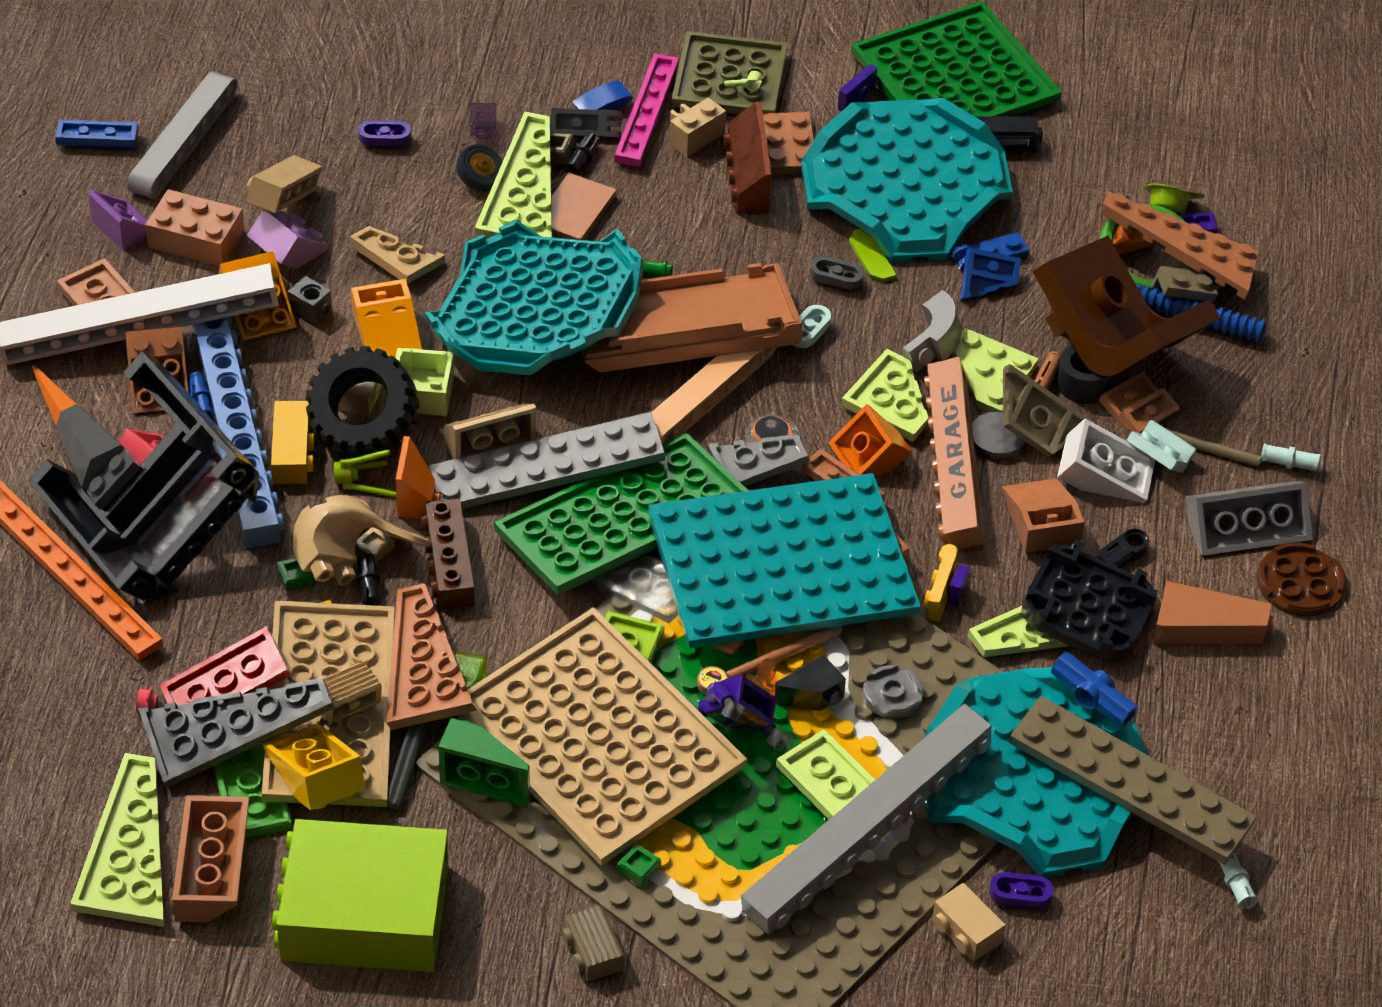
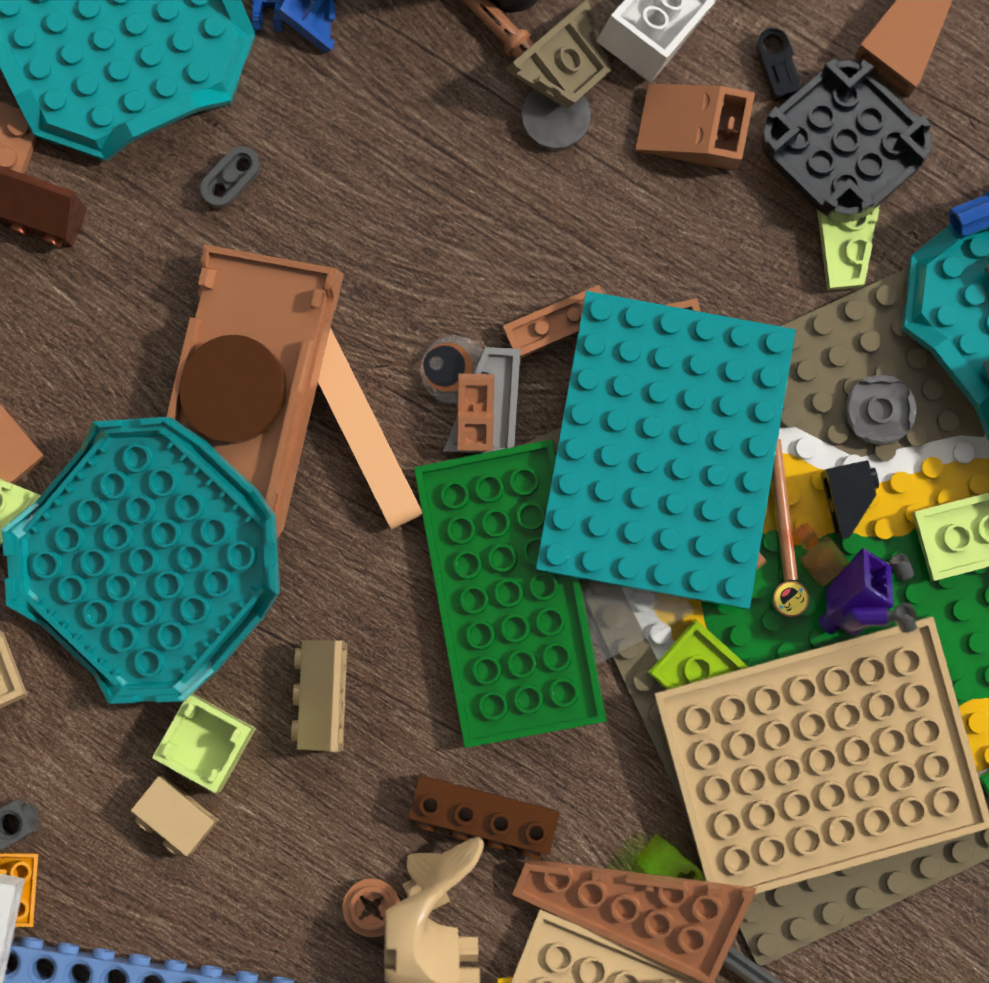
camera: 65 degrees left, 35 degrees up
(291, 443) = (234, 932): yellow brick -> none
(344, 373) = (259, 876): black tyre -> none
(348, 471) = (308, 884): lime plant -> none
(368, 579) = (480, 920): black axle -> none
(385, 316) = (95, 750): light orange slope -> none
(413, 482) = (372, 817): orange slope -> none
(482, 764) = (822, 914): green slope -> none
(549, 461) = (396, 648): light grey plate -> none
(657, 269) = (132, 387): green pin -> none
(683, 302) = (232, 388): none -> reddish brown tile
(742, 448) = (475, 412): none -> nougat slope
(815, 322) = (304, 249): light aqua plate -> none
(869, 444) = (520, 269): orange slope -> none
(871, 256) = (218, 124): lime piece -> none
(892, 393) = (450, 207): yellowish green plate -> none
(940, 337) = (388, 100): light grey arch -> none
(941, 579) = (747, 282): yellow hinge -> none
(954, 453) = (573, 179): brick -> none
(958, 585) = (761, 267): tile -> none
(984, 367) = (454, 73): yellowish green plate -> none

